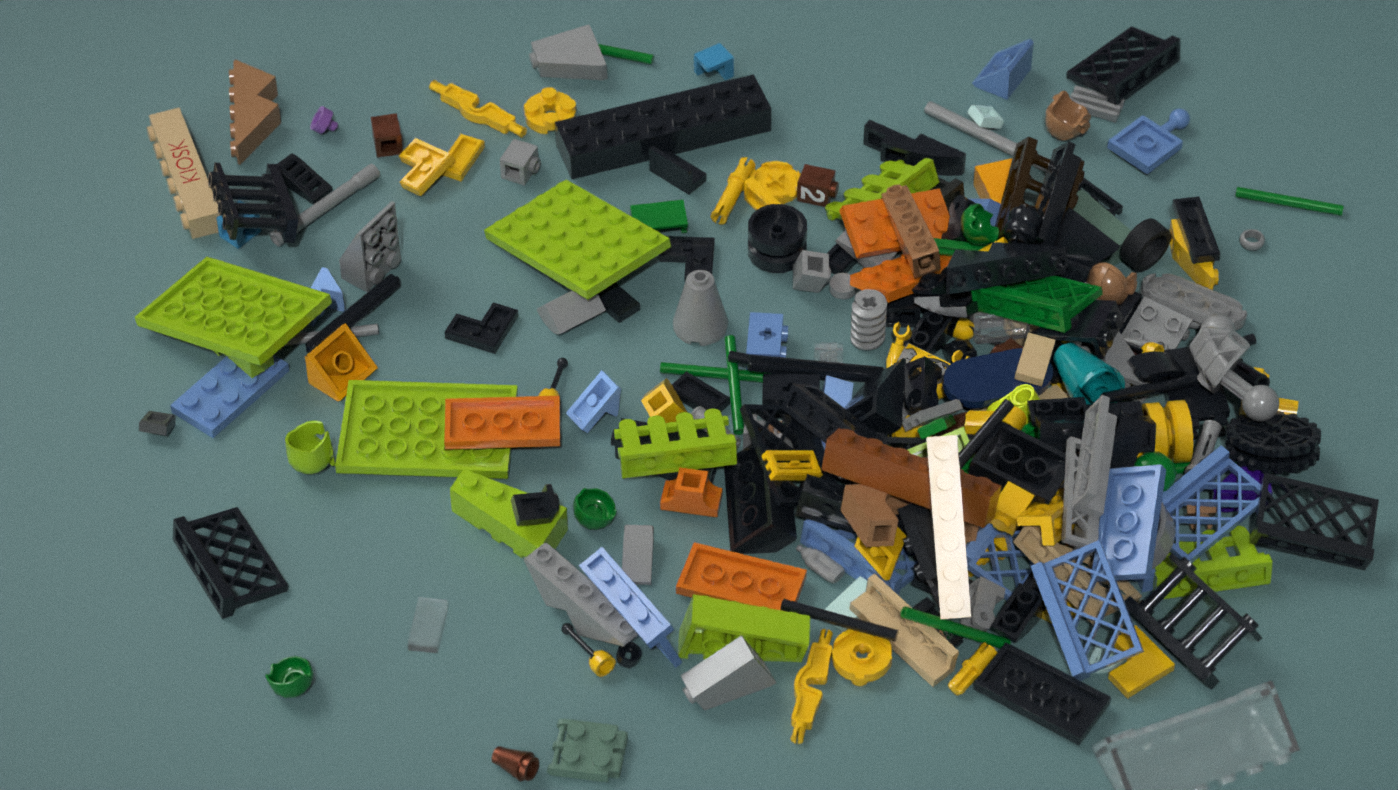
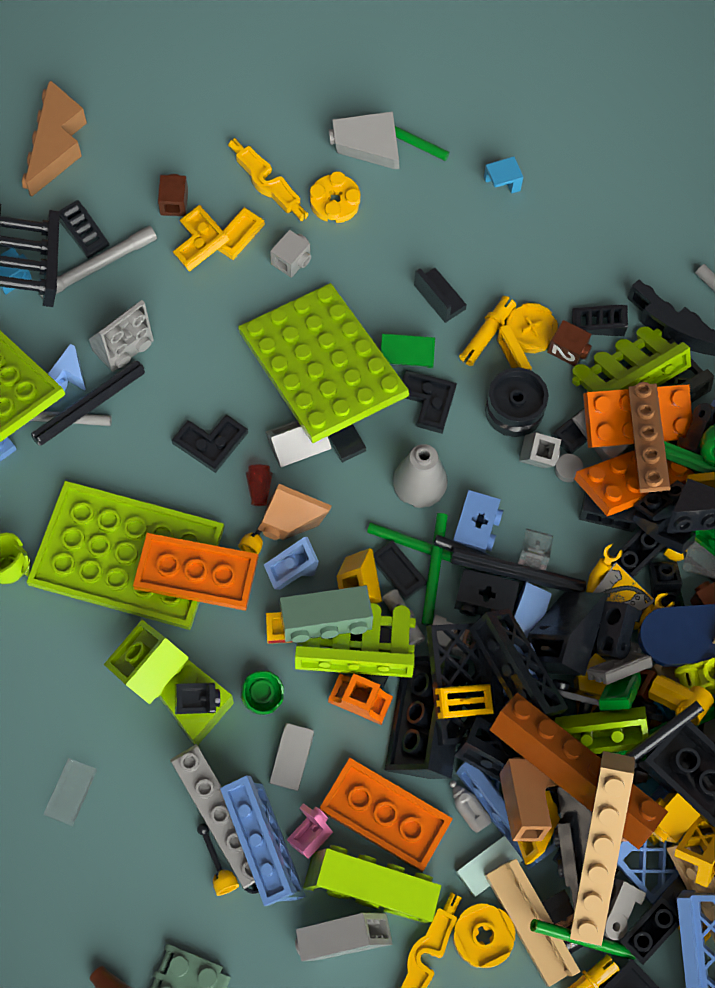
camera: 10 degrees right, 20 degrees up
(323, 120) = (118, 166): medium lavender tile -> none
(337, 362) = (61, 459): light orange slope -> none
(478, 488) = (146, 661): none -> lime slope
(542, 349) = (259, 483): none -> clear red cone
(583, 357) = (291, 513): none -> medium nougat slope
(597, 458) = (274, 628): none -> yellow plate
(640, 420) = (326, 614): none -> sand green brick
(668, 122) = (438, 240): black brick -> none
(676, 601) = (311, 832): none -> bright pink bracket
(840, 620) = (470, 894): black bar -> none
(850, 161) = (600, 312): none -> black slope
(868, 319) = (583, 525): light grey piece -> none

